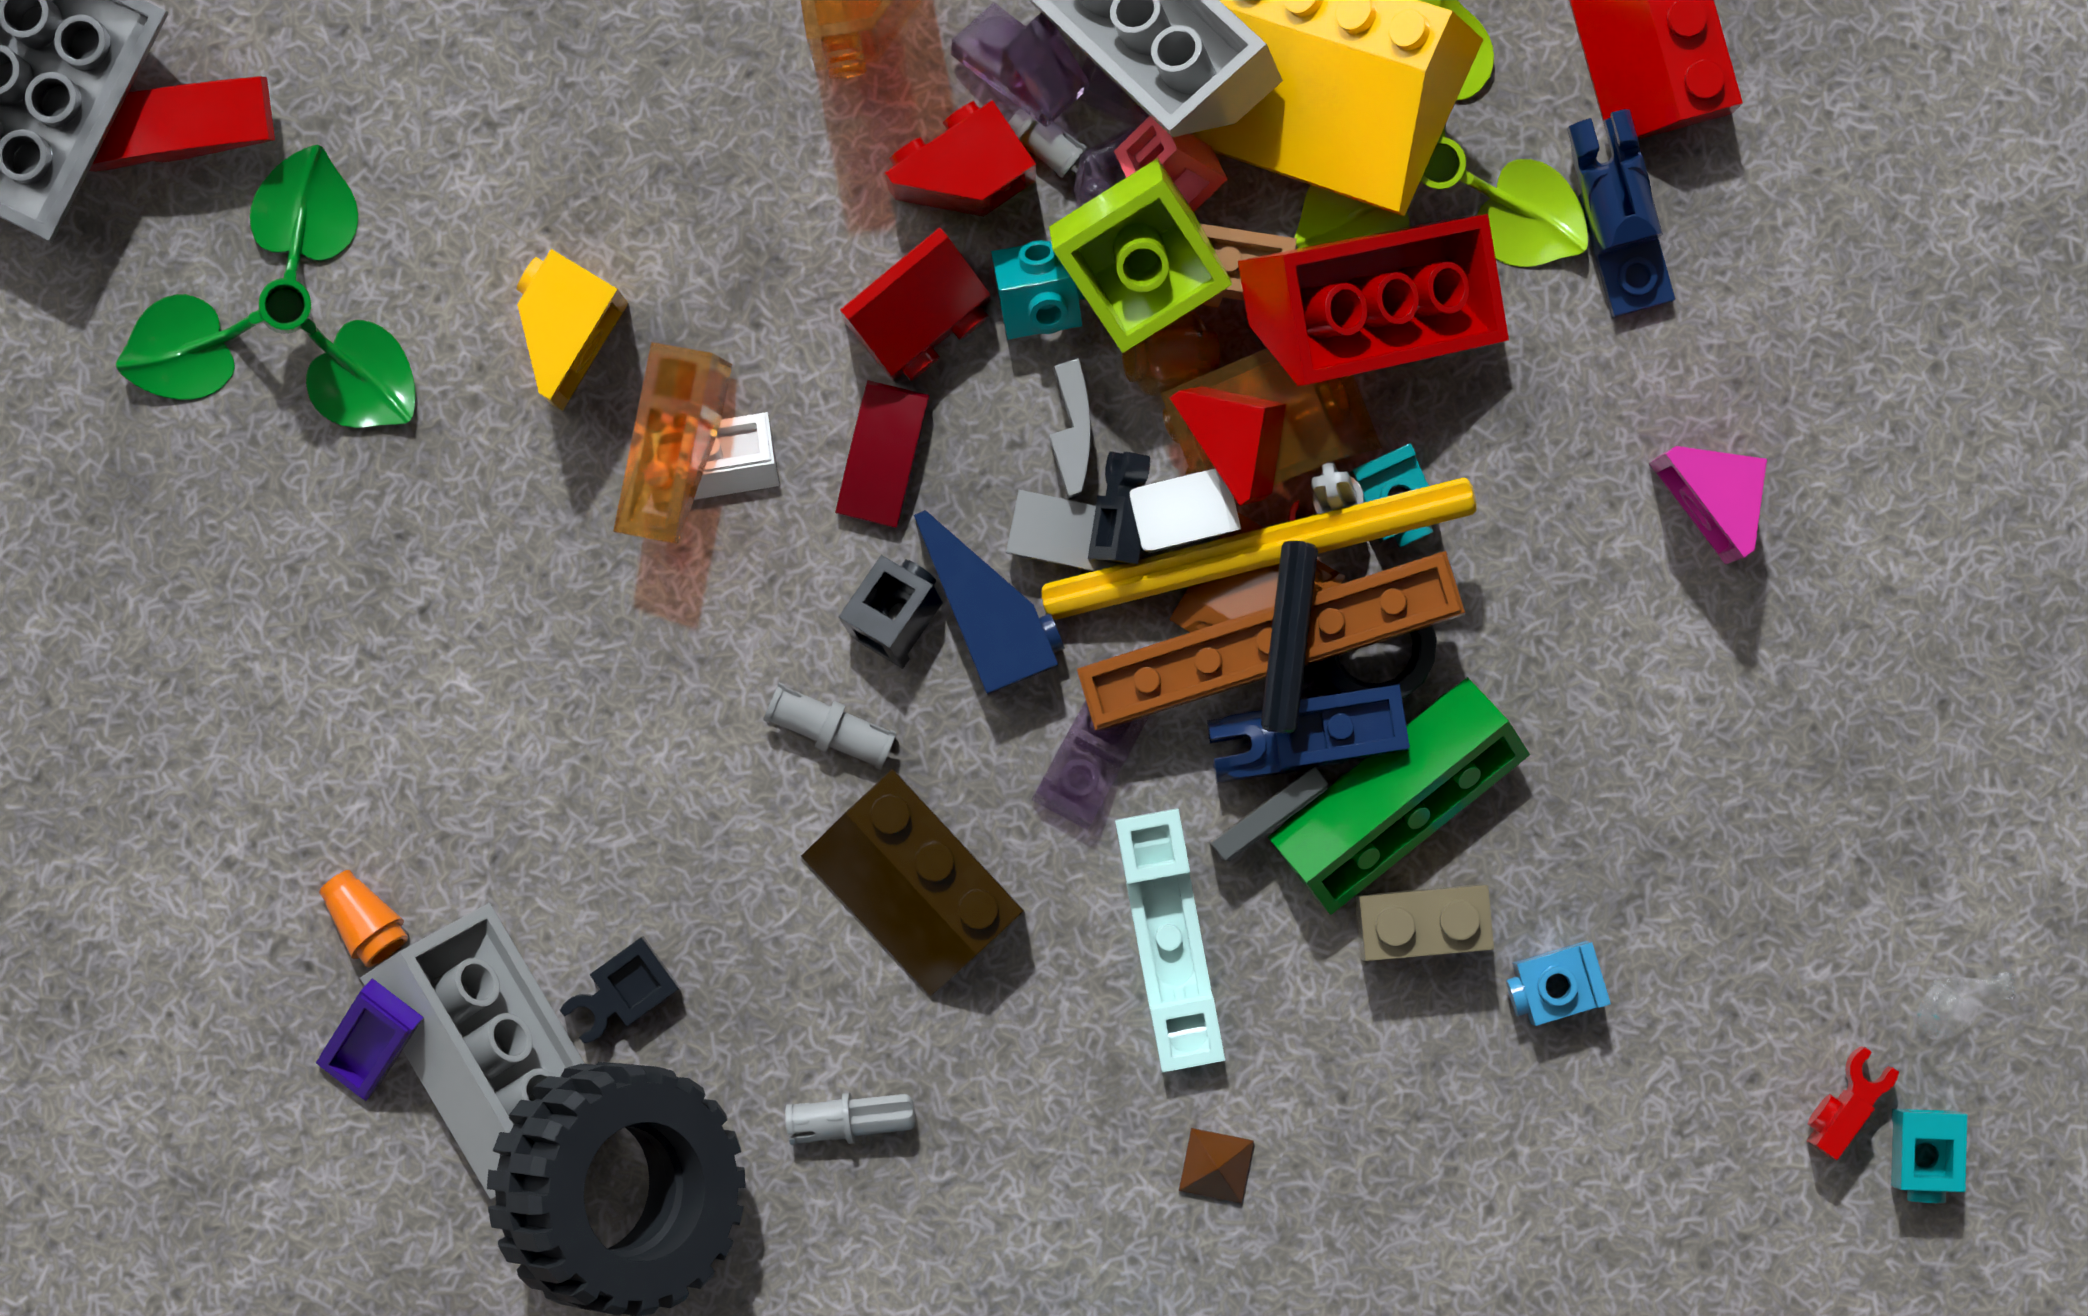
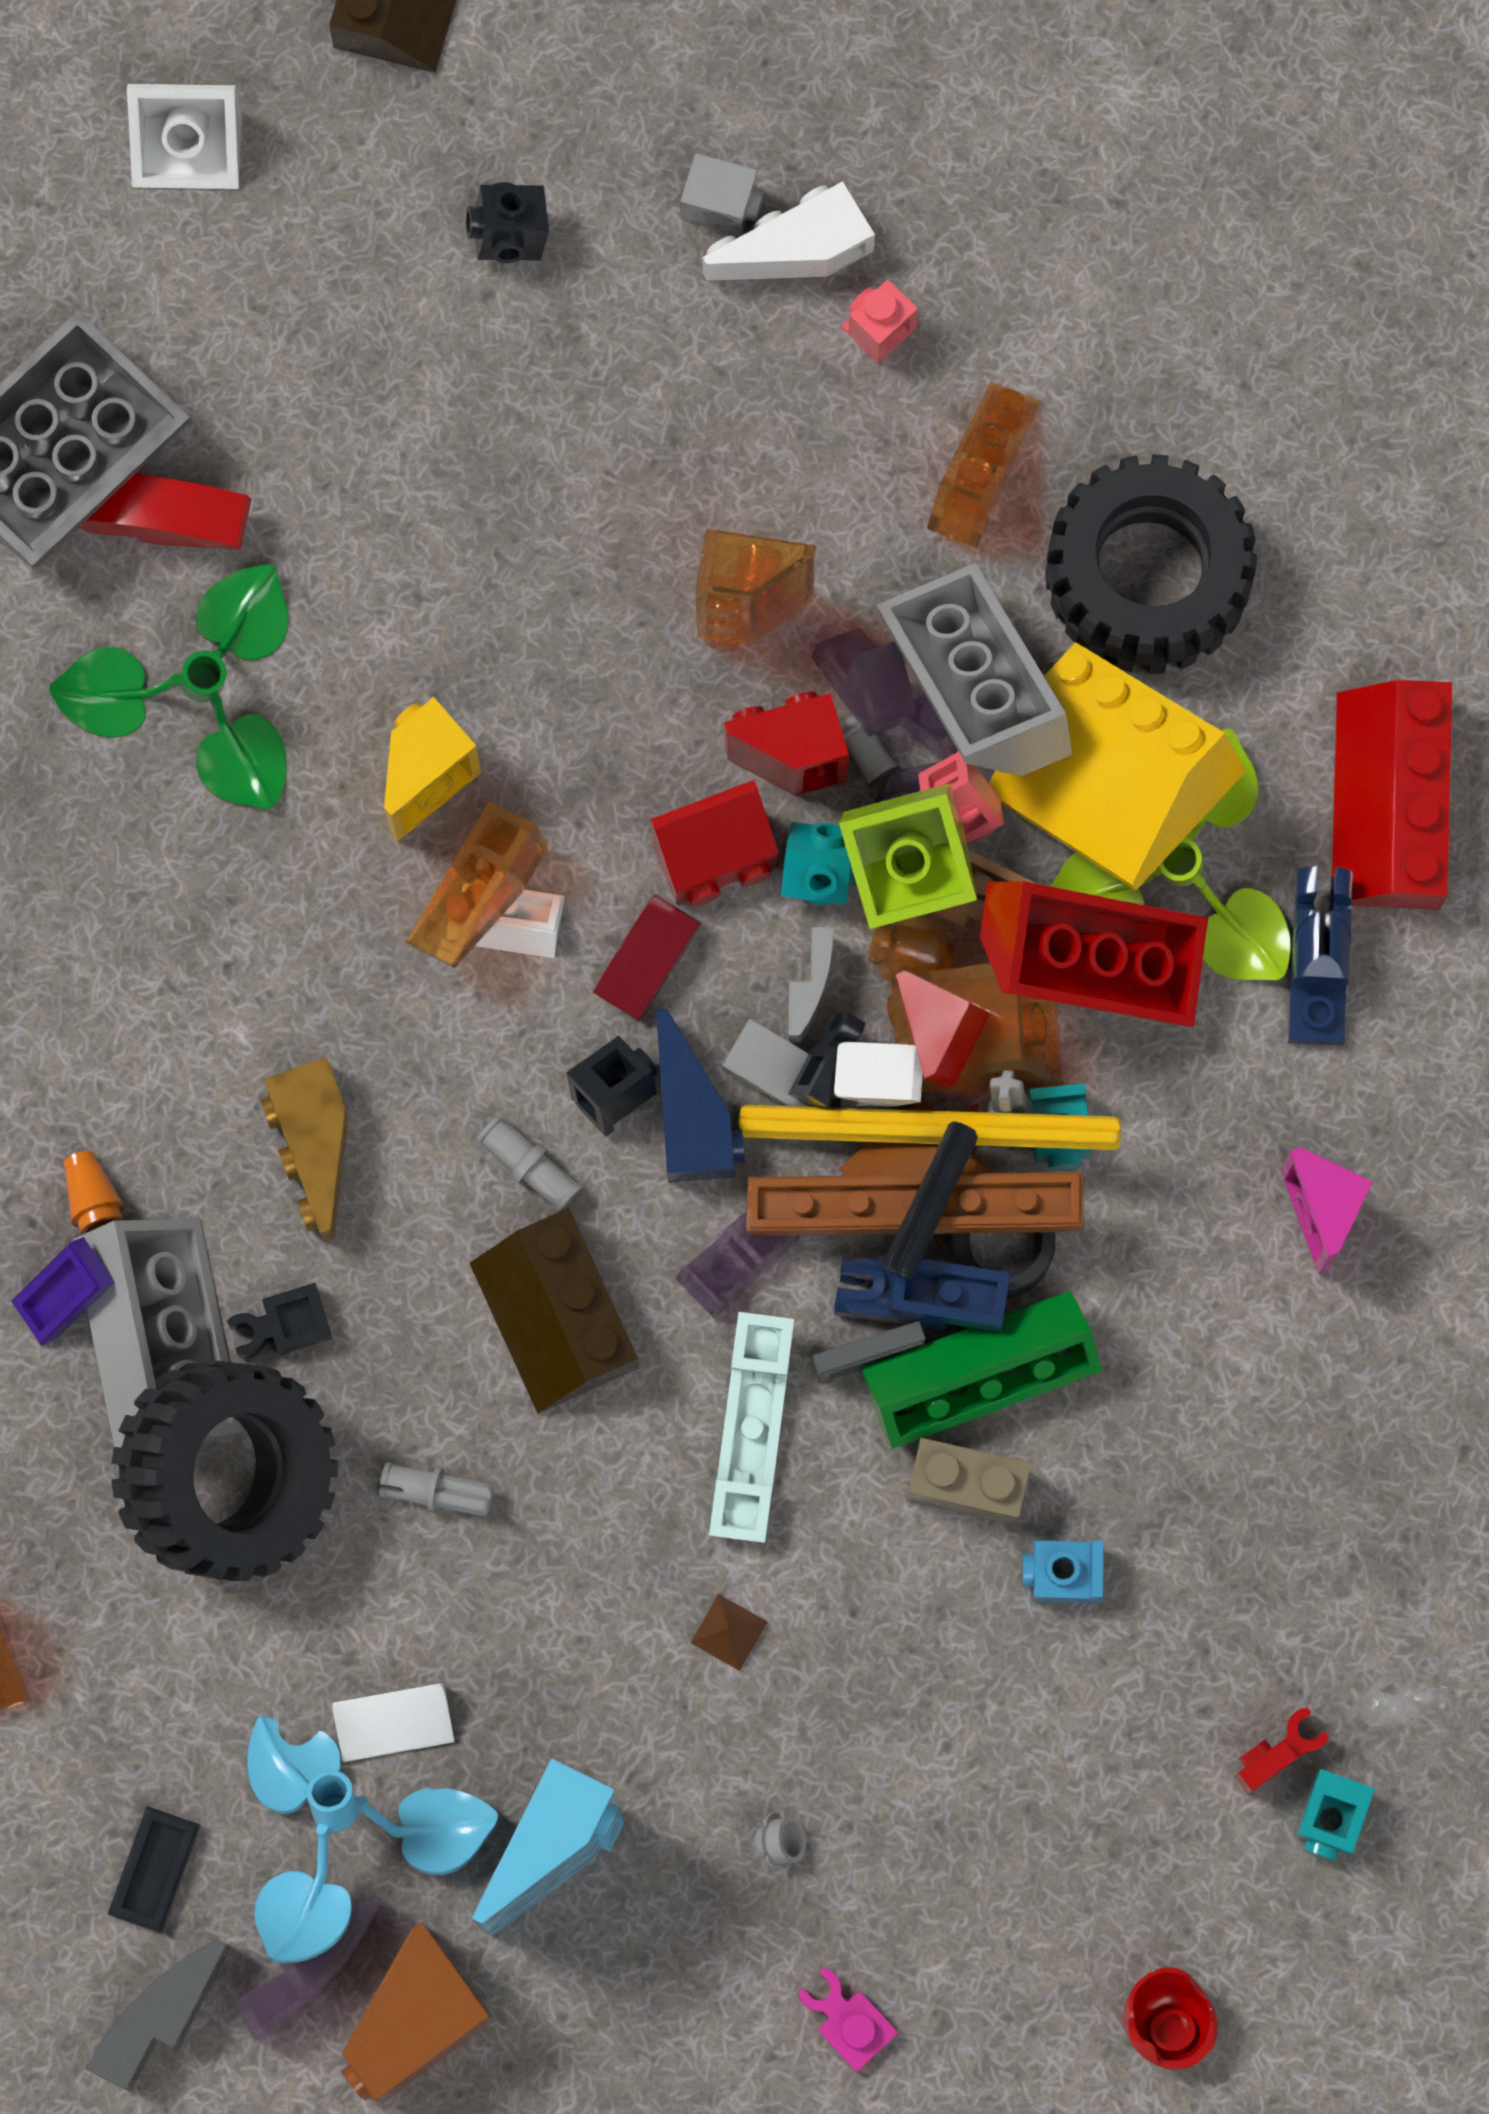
camera: 25 degrees right, 10 degrees down
(582, 766) = (315, 1128): none -> pearl gold slope

